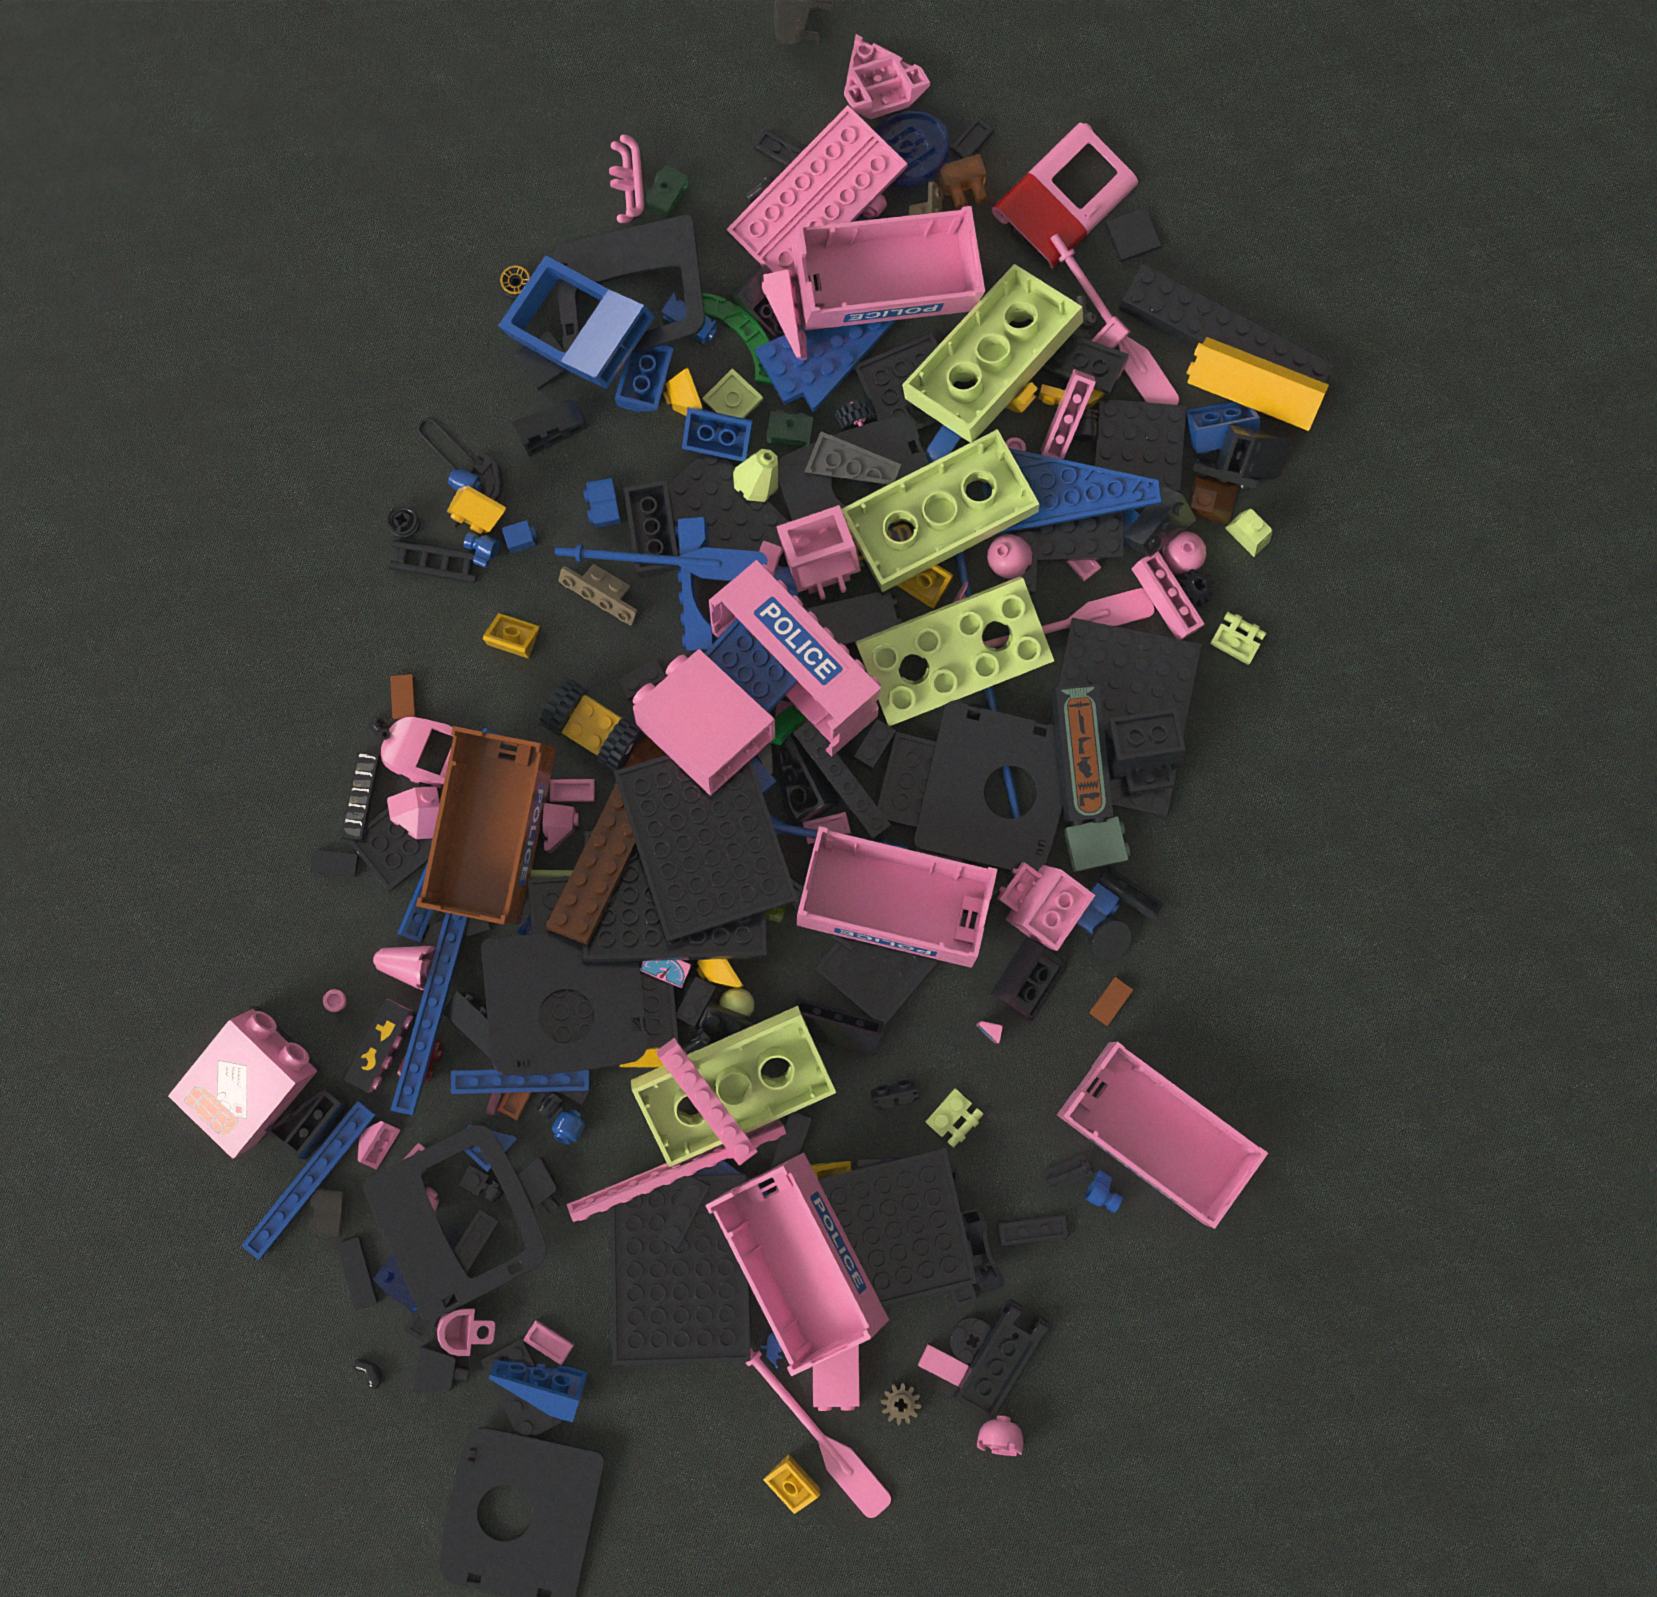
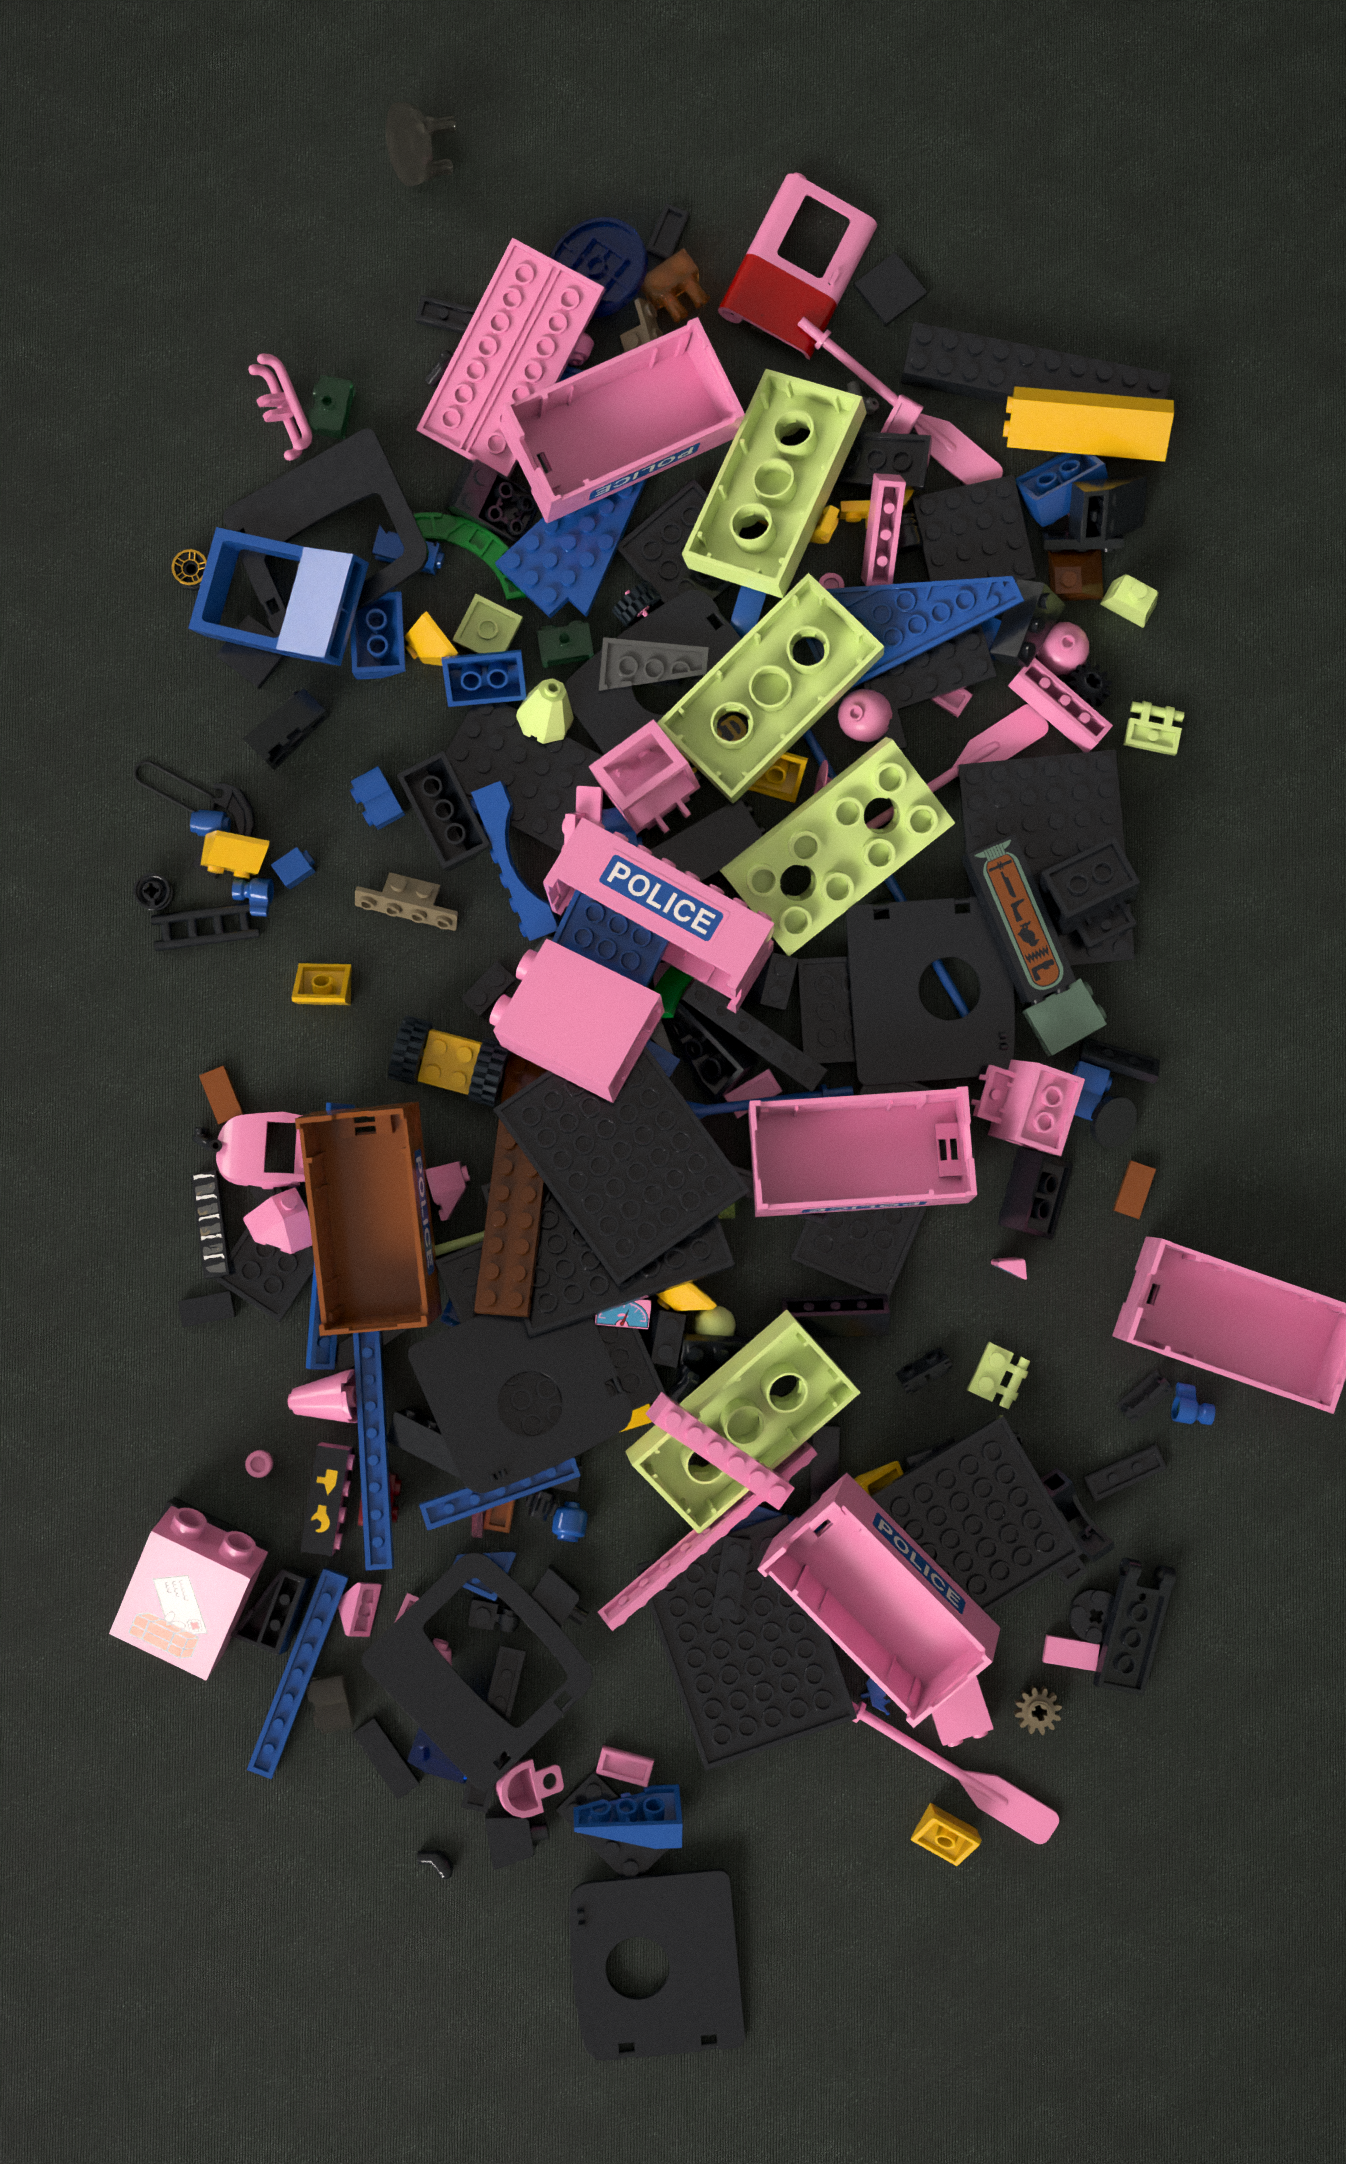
camera: 15 degrees left, 5 degrees up
(572, 790) = (450, 1141): bright pink tile -> none
(704, 562) = (518, 834): blue piece -> none
(784, 297) = (512, 493): bright pink wedge -> none
(881, 81) = (541, 195): bright pink wedge -> none
(1001, 1437) = (1160, 1711): bright pink cylinder -> none

